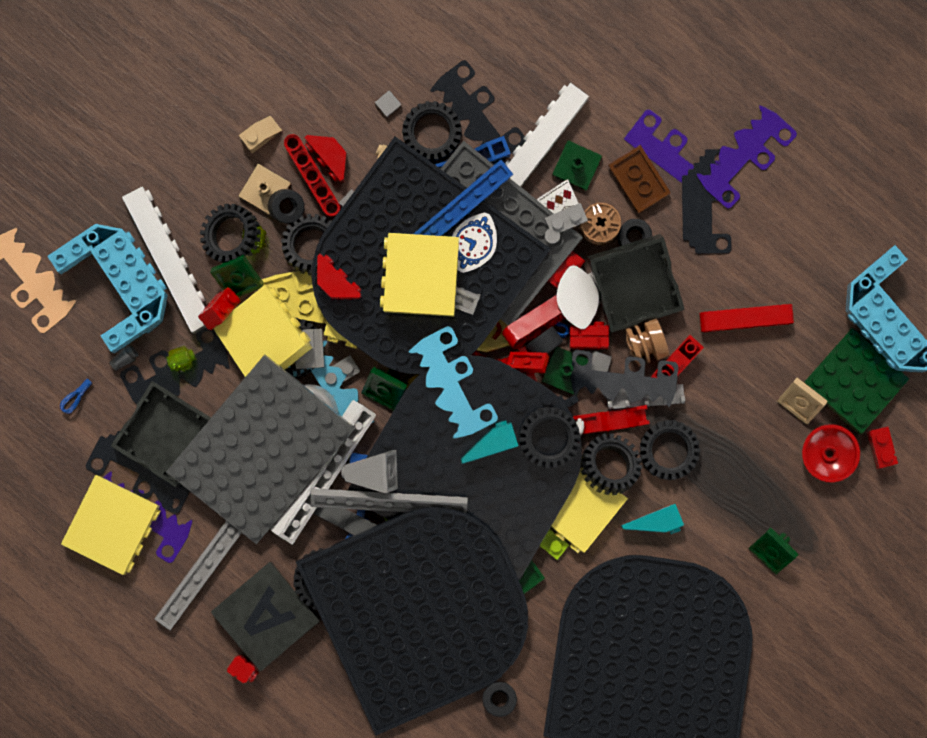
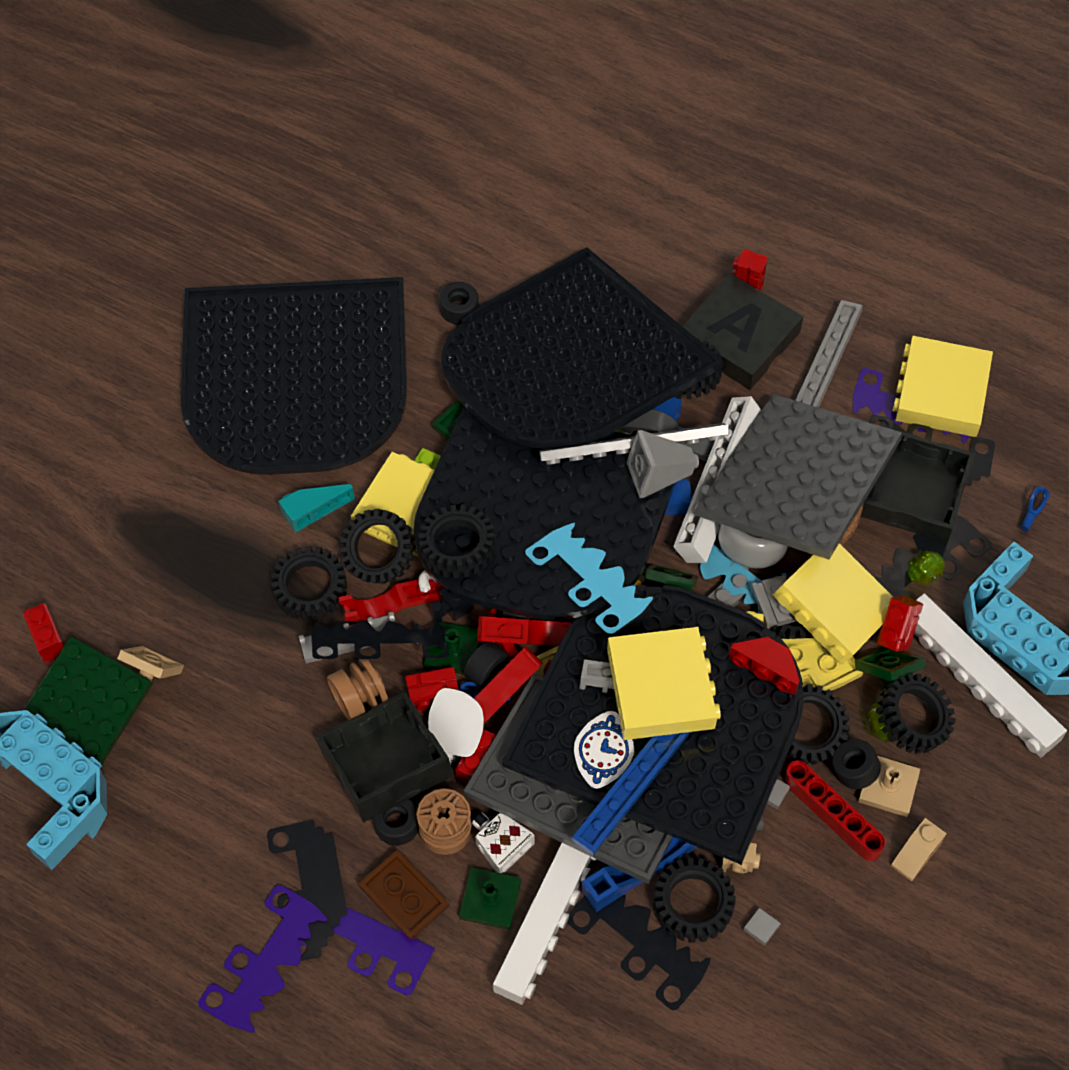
camera: 165 degrees right, 25 degrees down
(124, 357) = (990, 556): dark grey cone -> none
(330, 155) = (820, 842): red slope -> none
(496, 440) = (523, 522): teal slope -> none
(563, 221) = (491, 802): light grey hinge -> none
(600, 361) = (412, 662): light grey tile -> none
(682, 356) = (312, 682): red slope -> none
(746, 318) = (234, 750): red beam -> none
(773, 550) = (166, 498): dark green tile -> none
(841, 444) = (105, 600): red dish -> none

